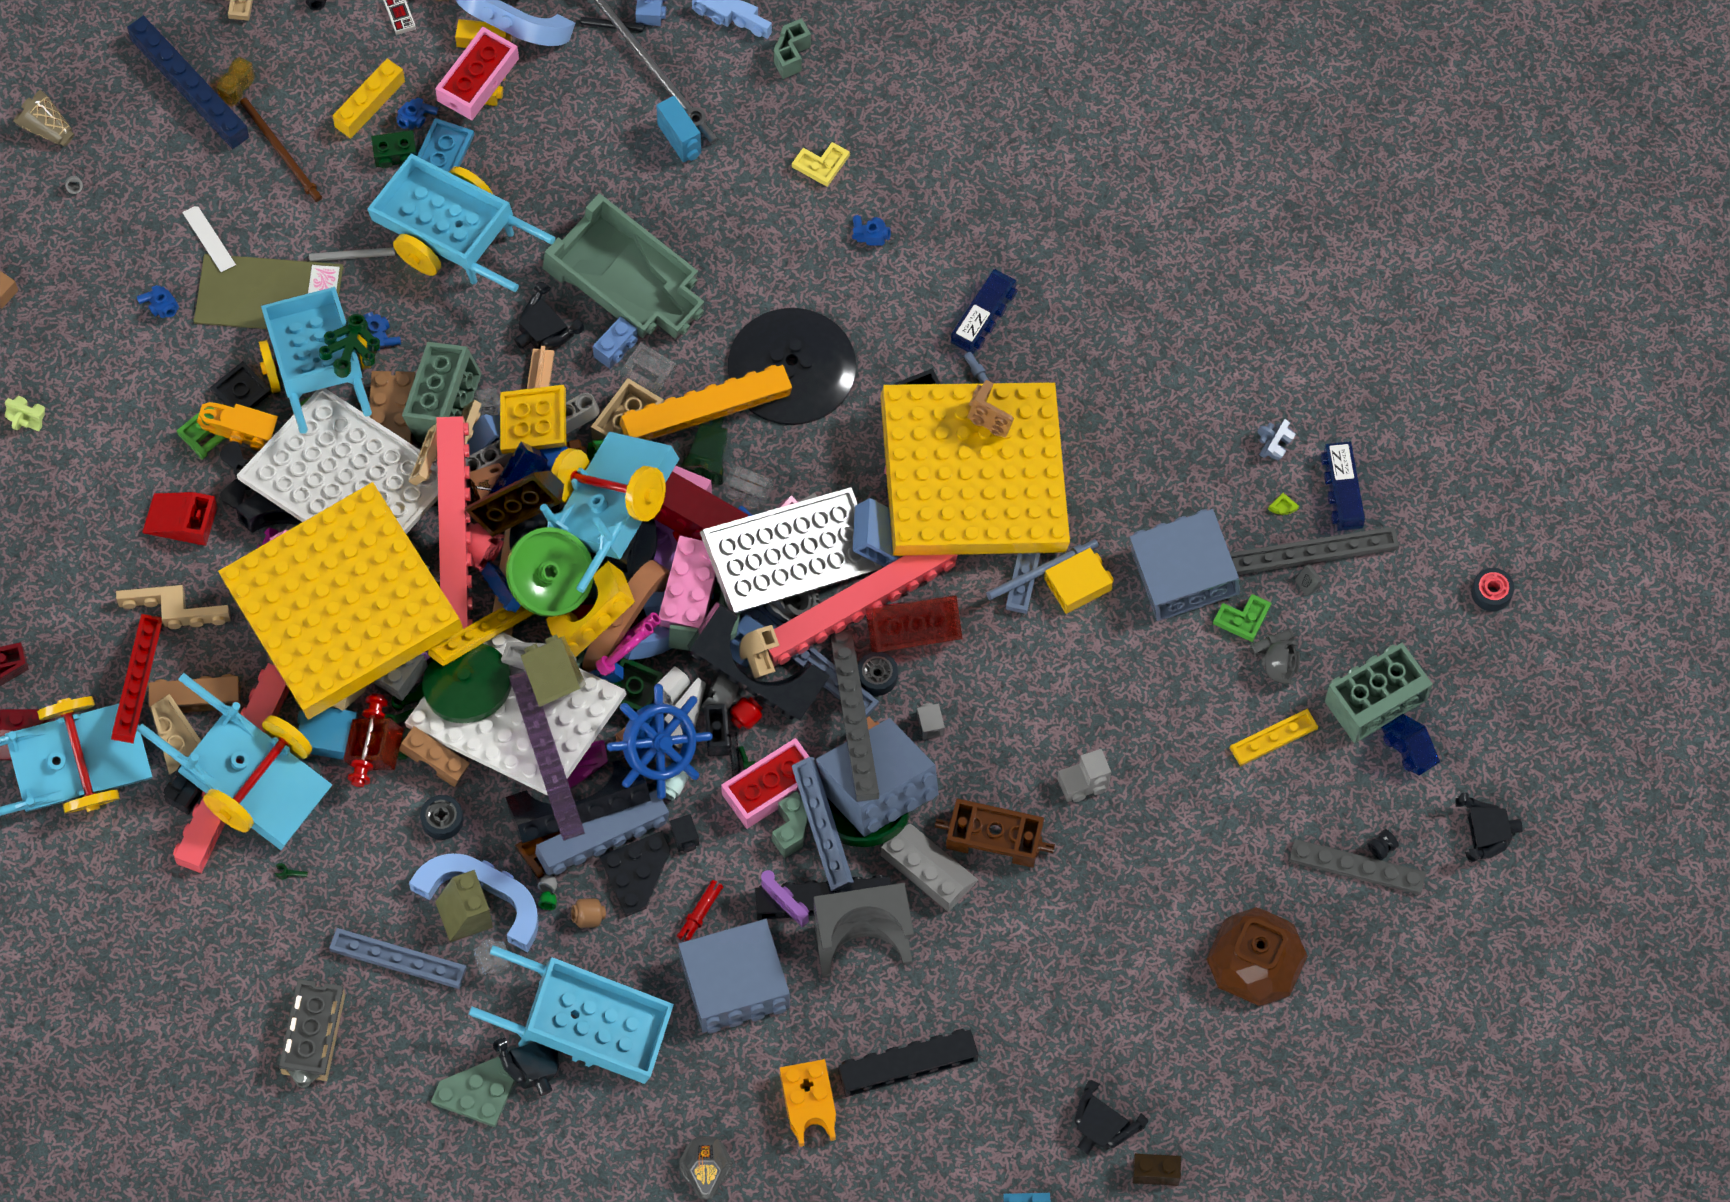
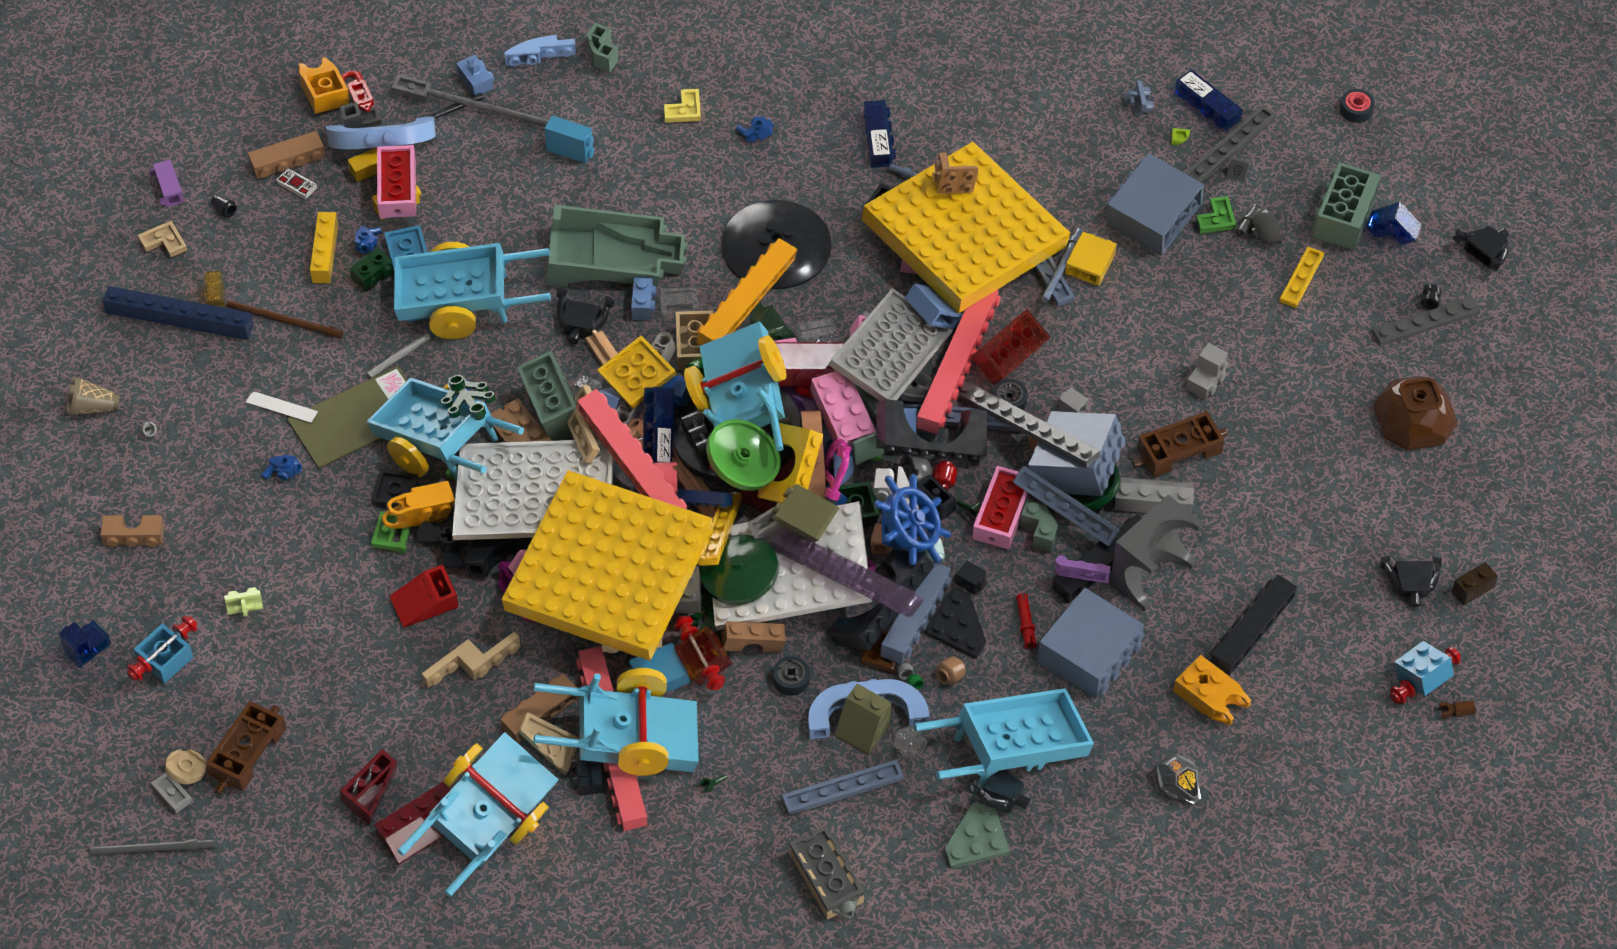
camera: 35 degrees left, 10 degrees down
(137, 679) = (496, 716): red plate -> none
(516, 502) = (680, 425): dark brown slope -> none
(755, 648) = (921, 422): tan brick -> none

